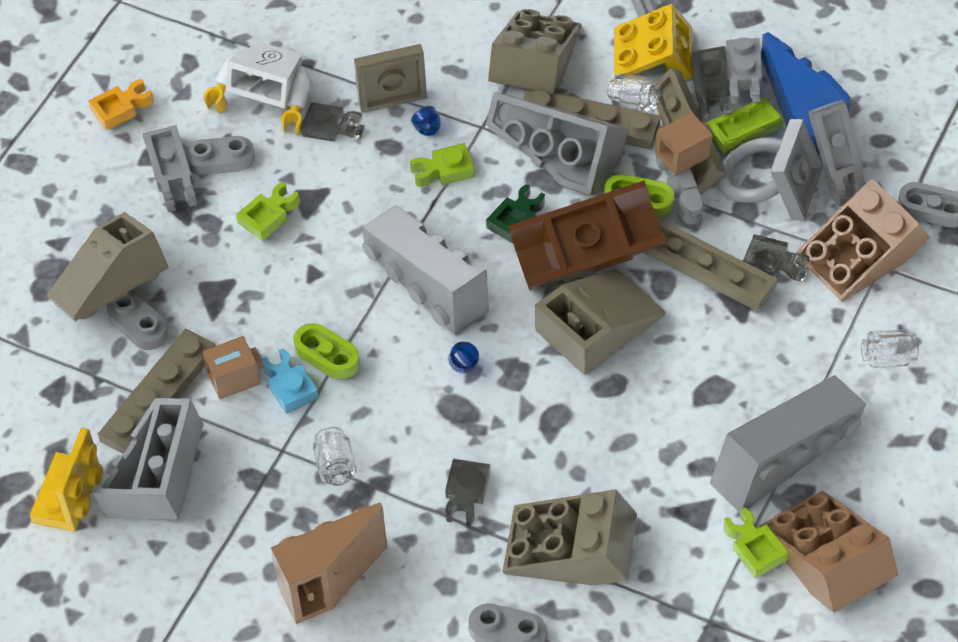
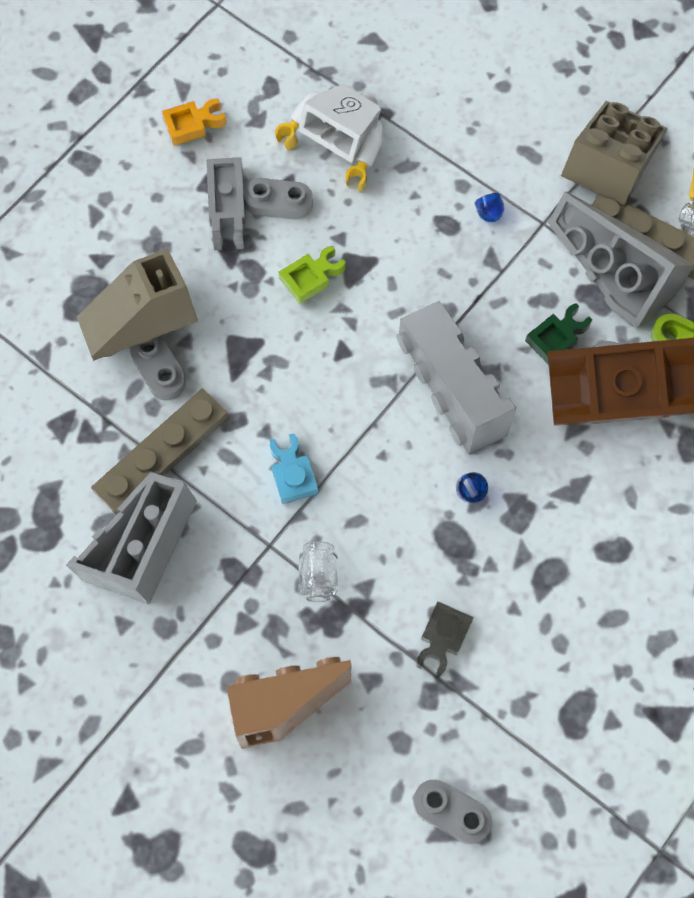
camera: 10 degrees right, 15 degrees up
(68, 486) = (48, 541): yellow bracket -> none
(232, 367) = (239, 444): medium nougat brick -> none
(328, 121) = (393, 184): clear smoke plate -> none
(329, 352) = (337, 448): lime plate -> none
(390, 78) = (464, 154): dark tan tile -> none
(447, 164) = (501, 259): lime plate -> none
(572, 539) = (538, 726): dark tan slope -> none
(594, 317) = (616, 473): dark tan slope -> none

